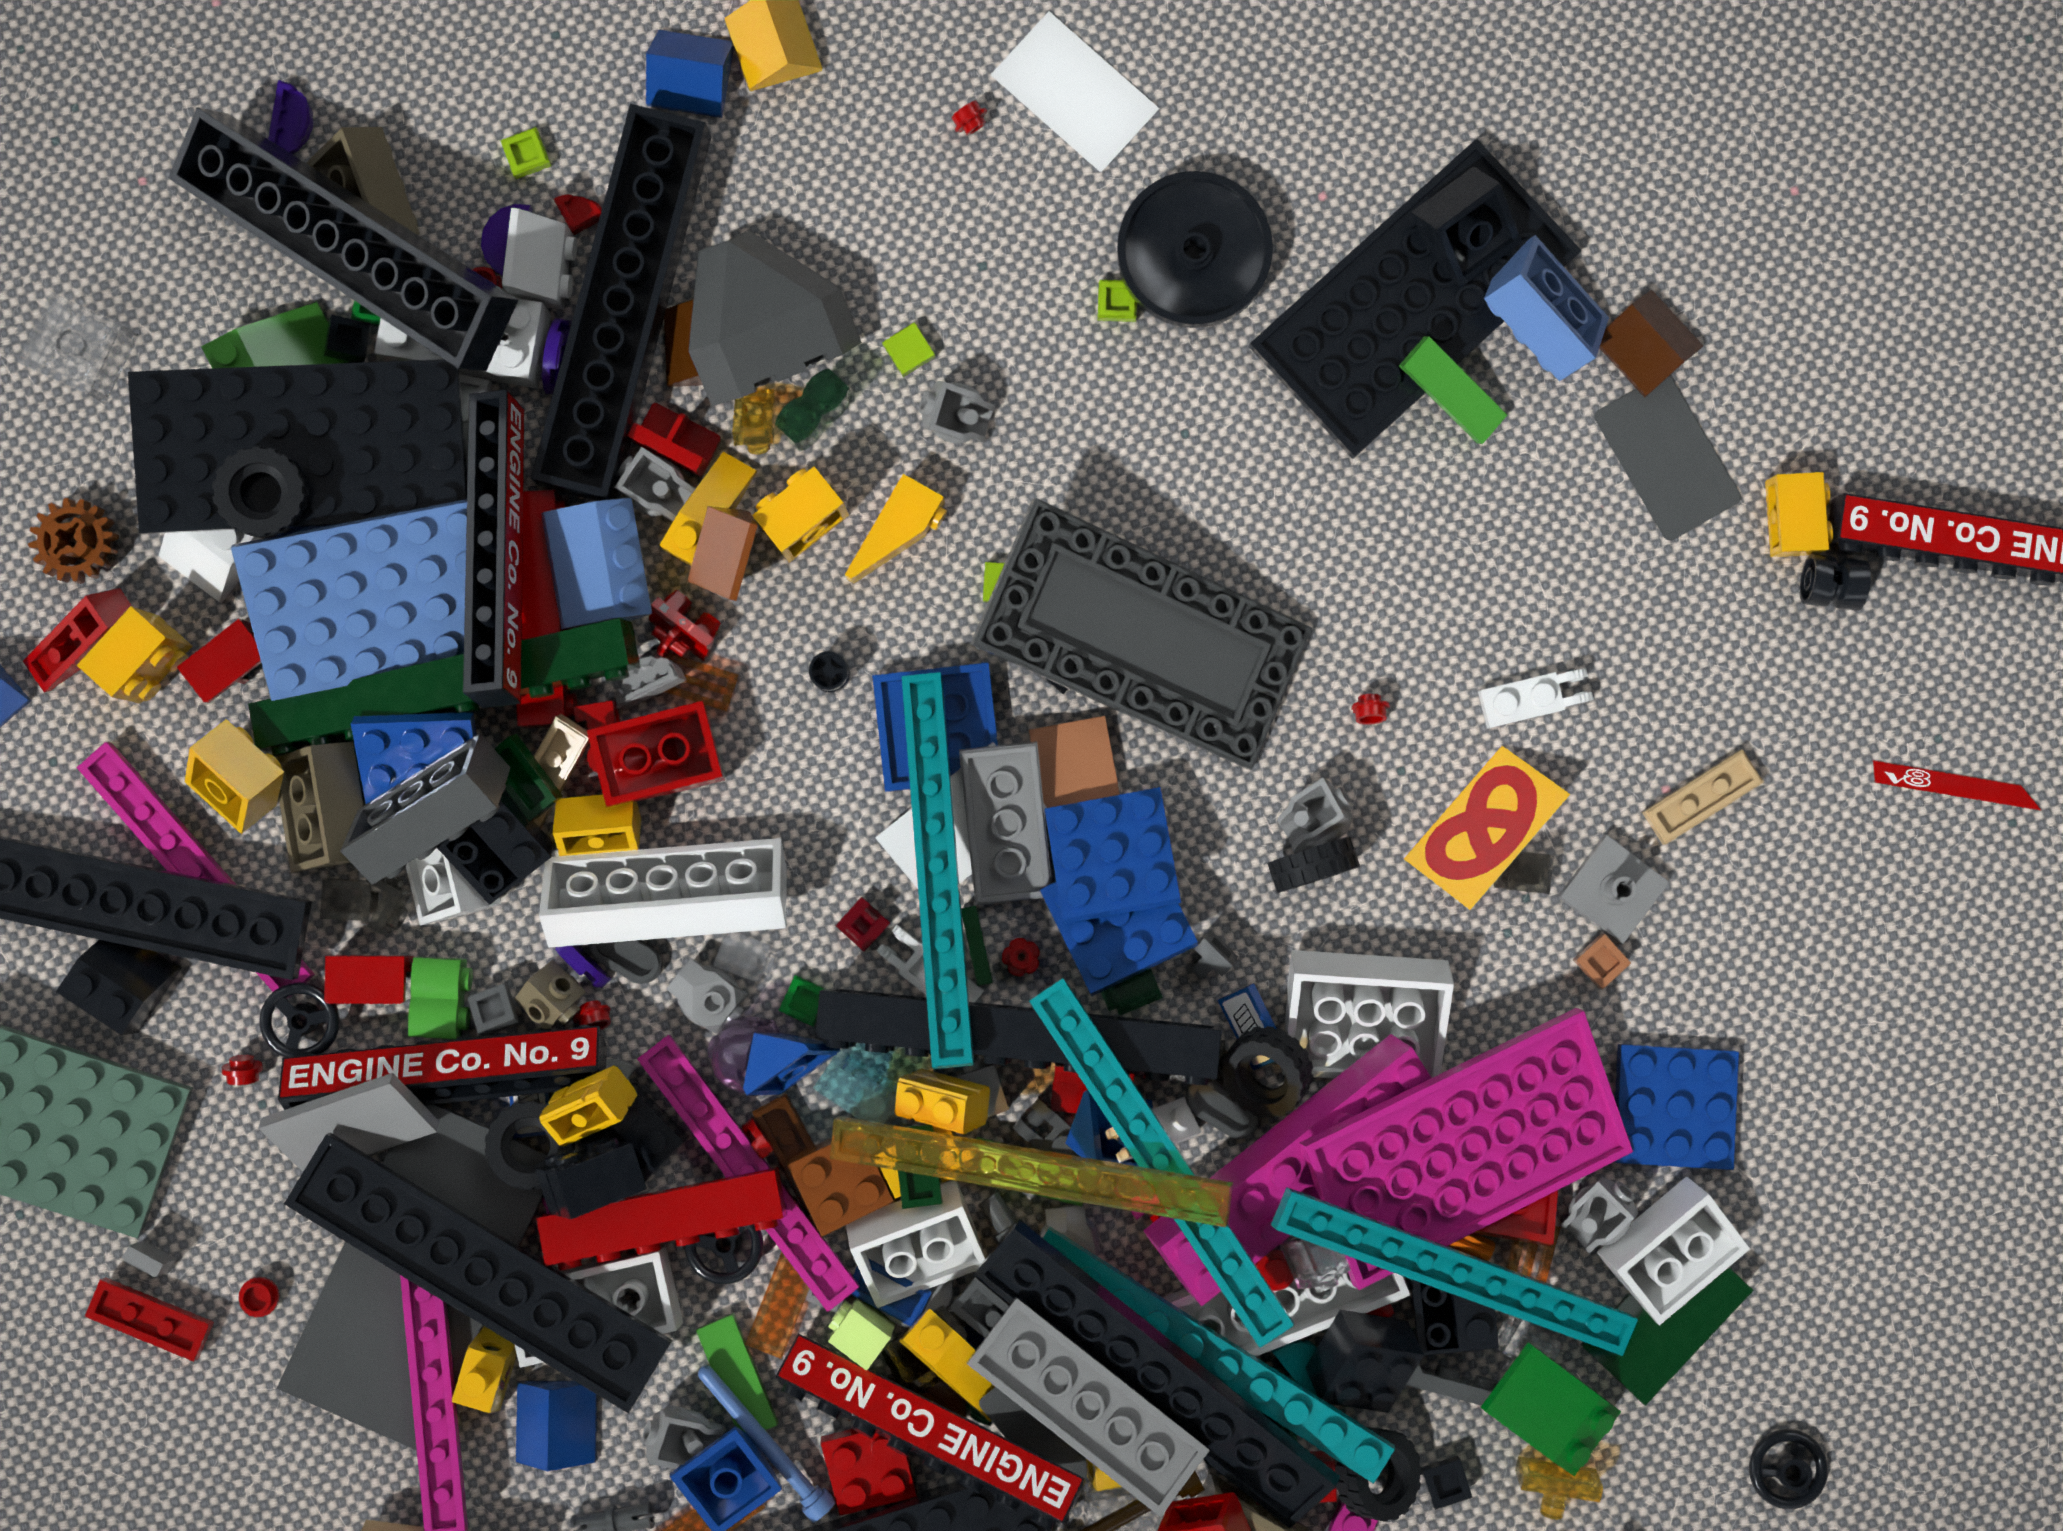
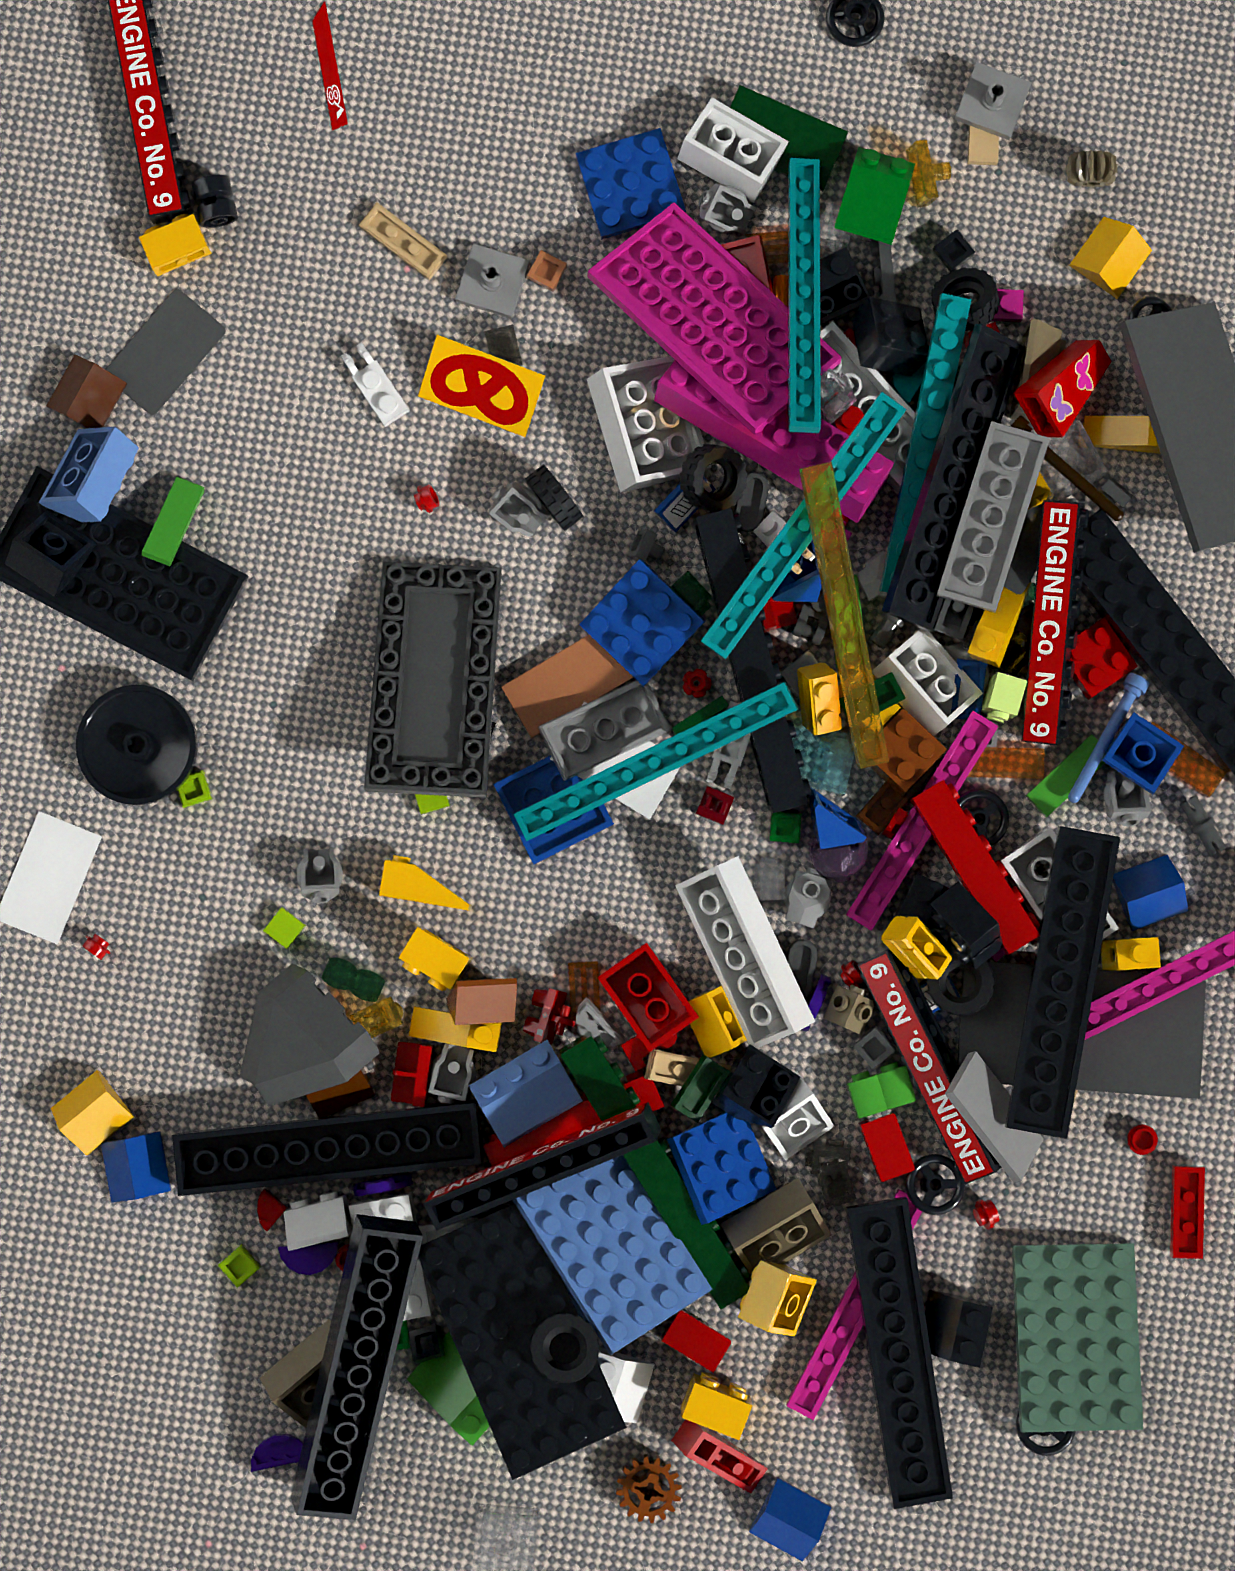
camera: 105 degrees left, 0 degrees up
(149, 1258) = (1145, 1228): light grey tile -> none
(426, 810) = (749, 1144): dark grey brick -> none
(824, 670) = (542, 896): black wheel -> none
(1112, 855) = (600, 642): blue plate -> none

